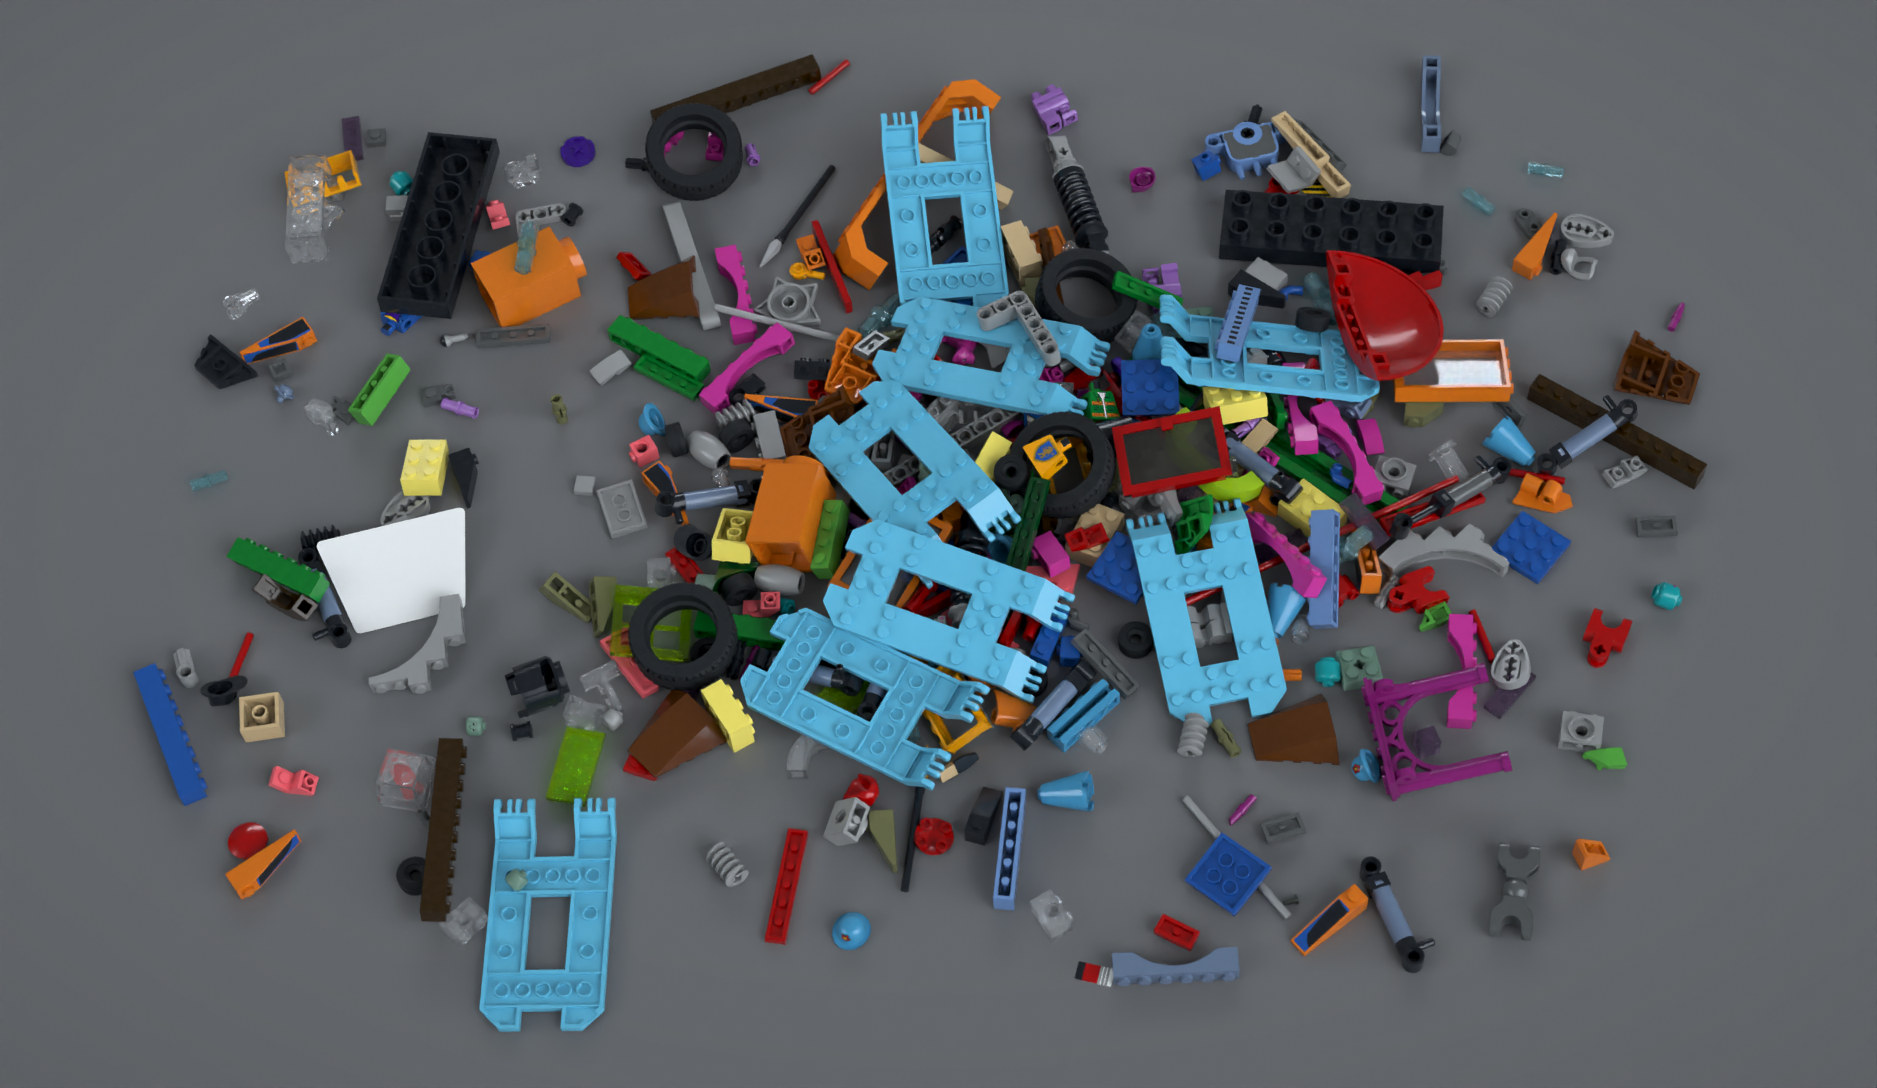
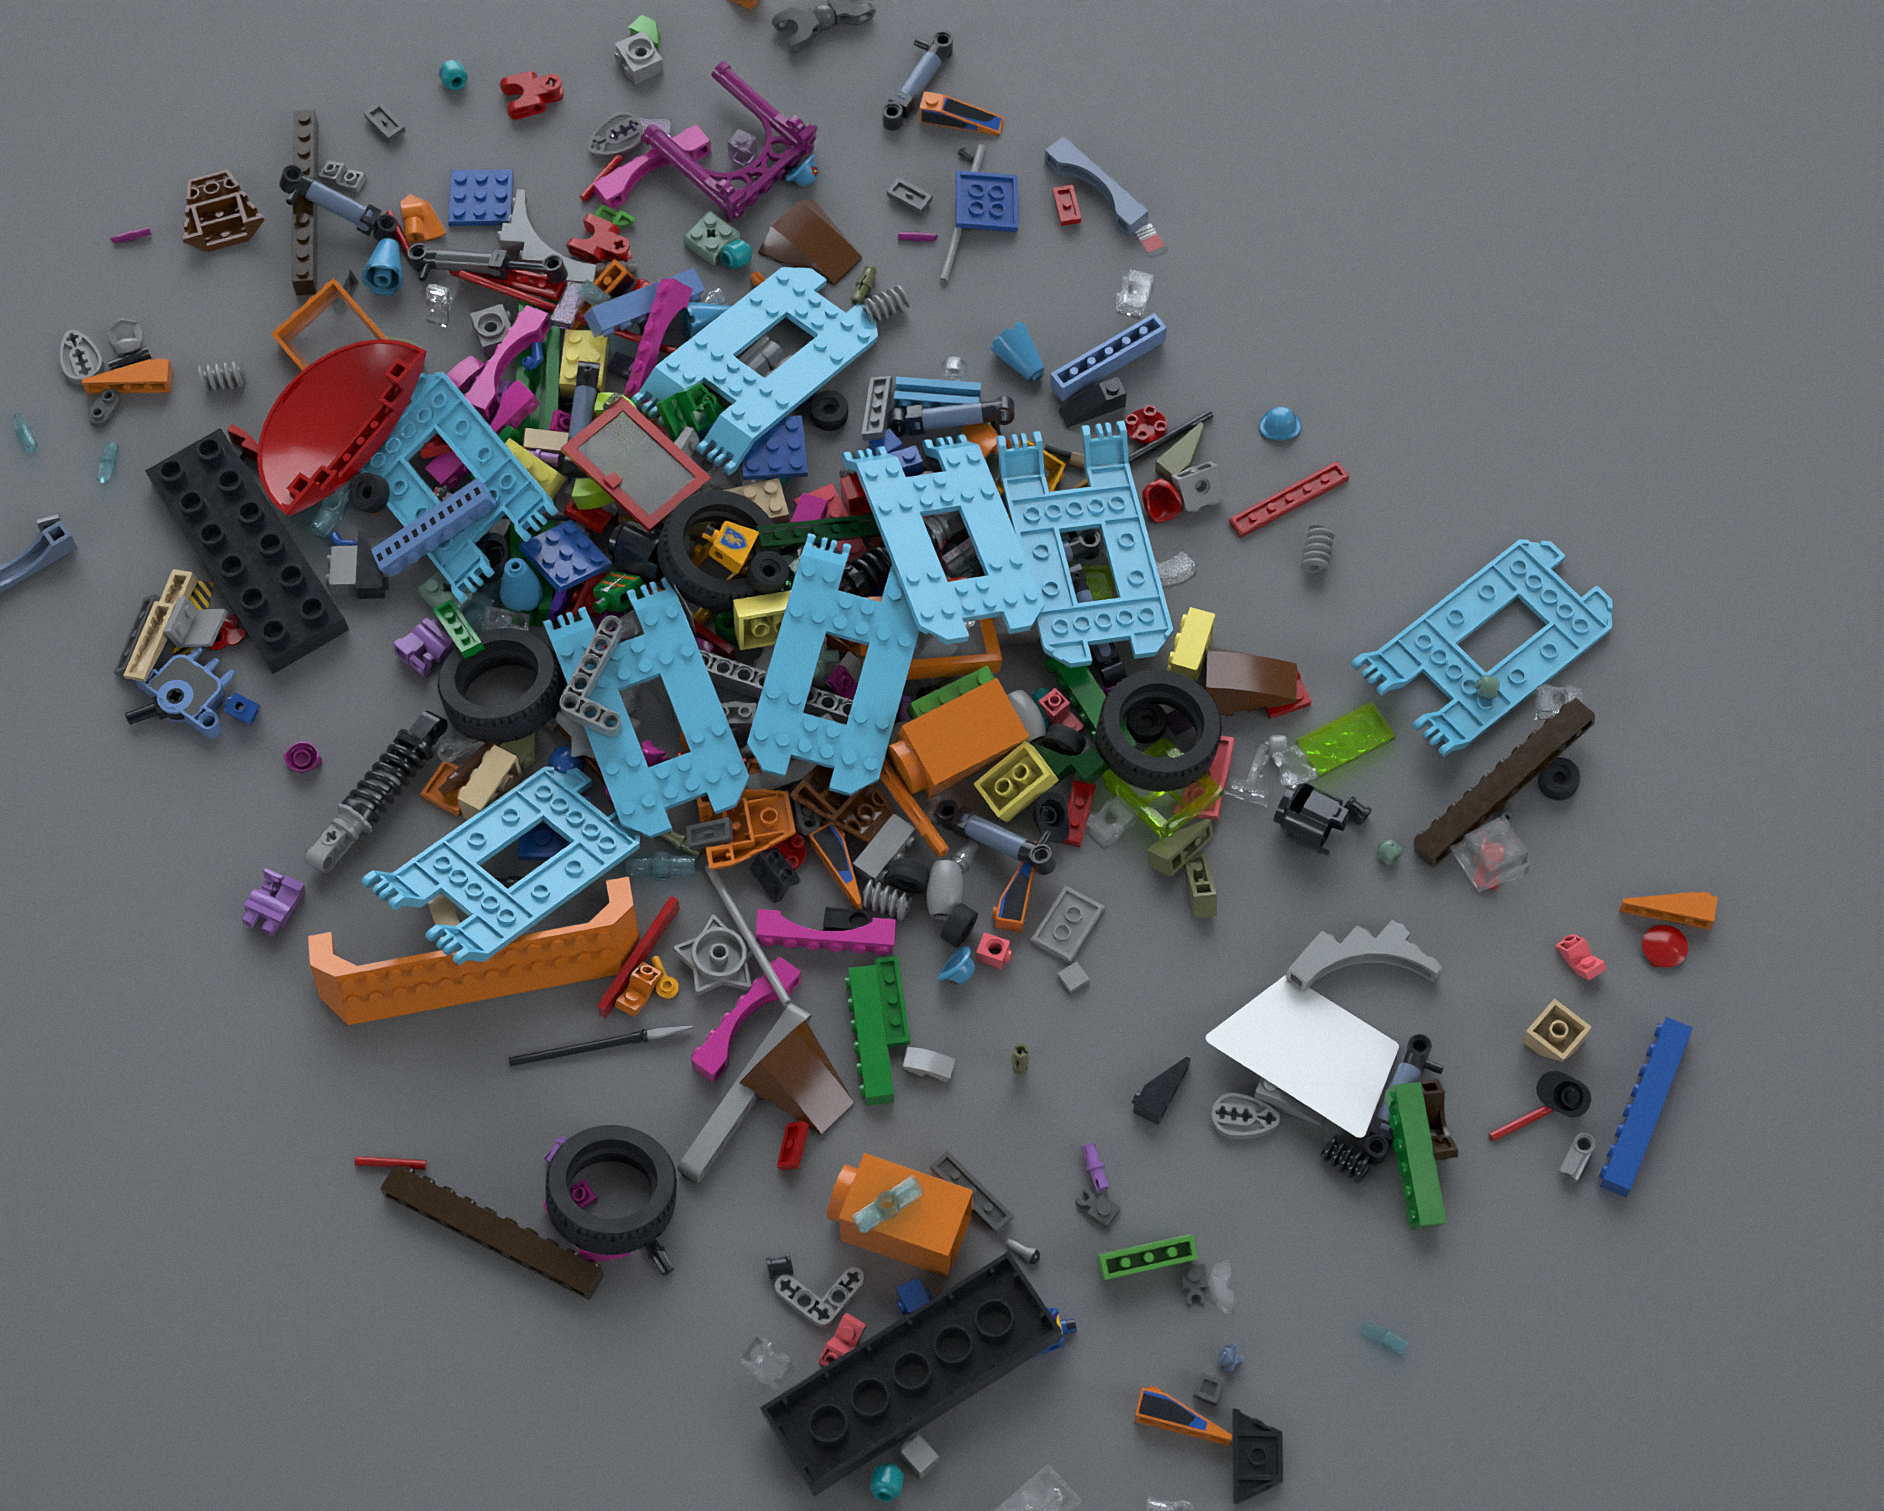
camera: 135 degrees left, 5 degrees up
(425, 468) = (1190, 1127): light yellow brick -> none
(577, 151) = (692, 1340): dark purple tile -> none
(1084, 539) = (770, 495): red slope -> none

